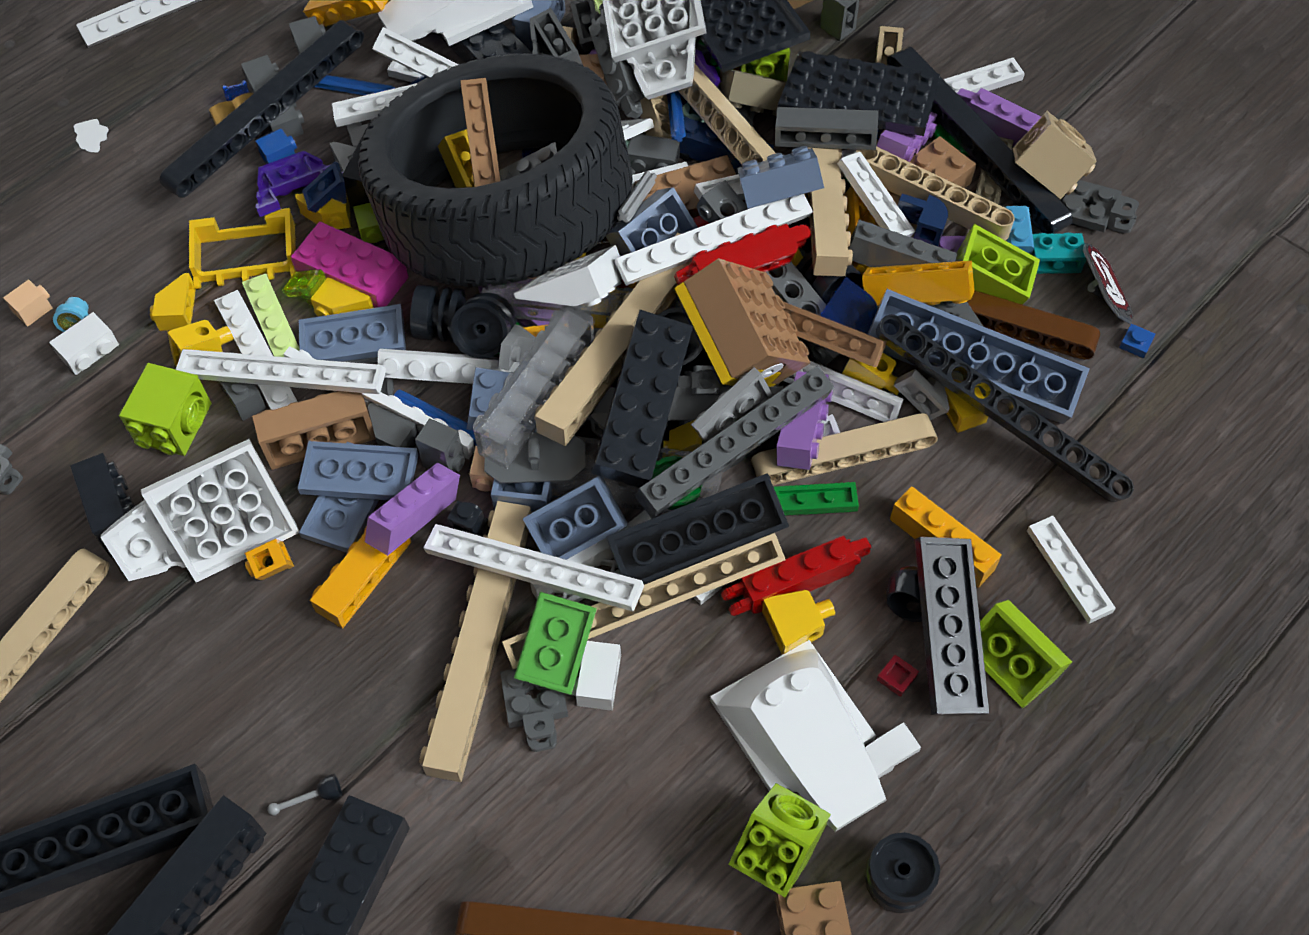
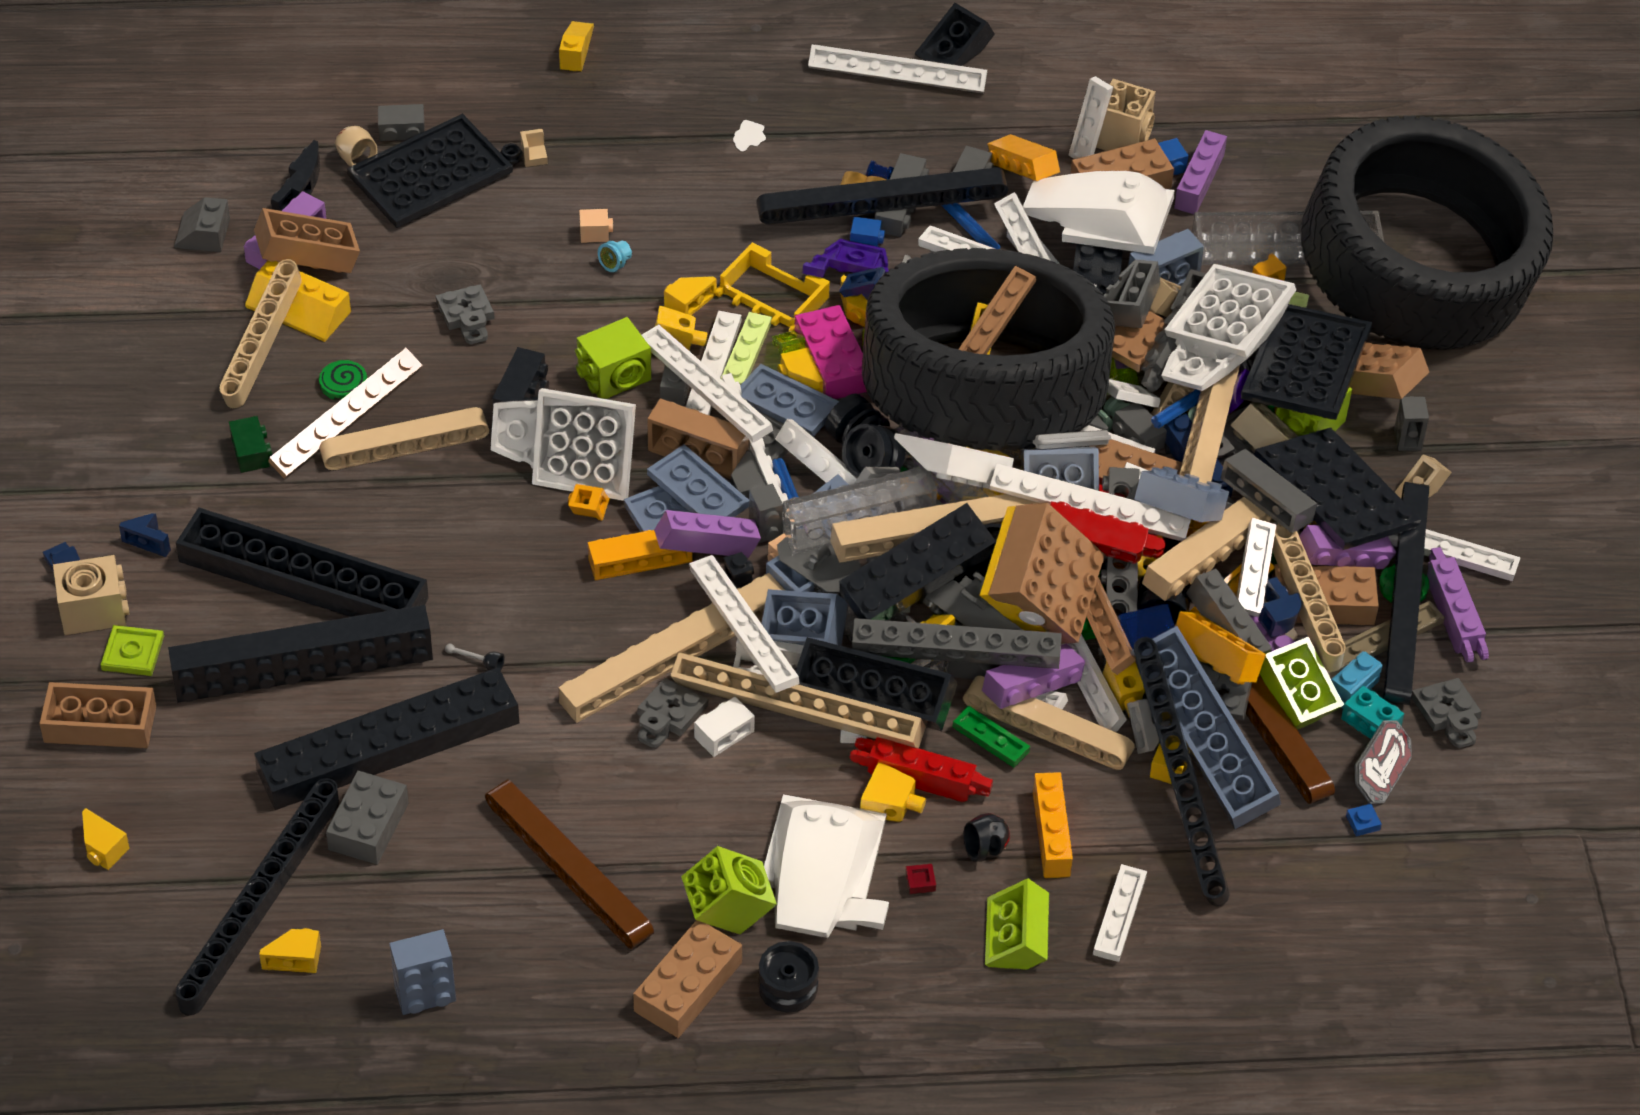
camera: 40 degrees right, 10 degrees down
(84, 343) = (605, 279): white brick -> none
(555, 643) = (711, 678): bright green tile -> none
(732, 405) = (978, 613): light grey plate -> none
(951, 626) = (984, 870): plate -> none
(1055, 154) = (1441, 640): tan brick -> none

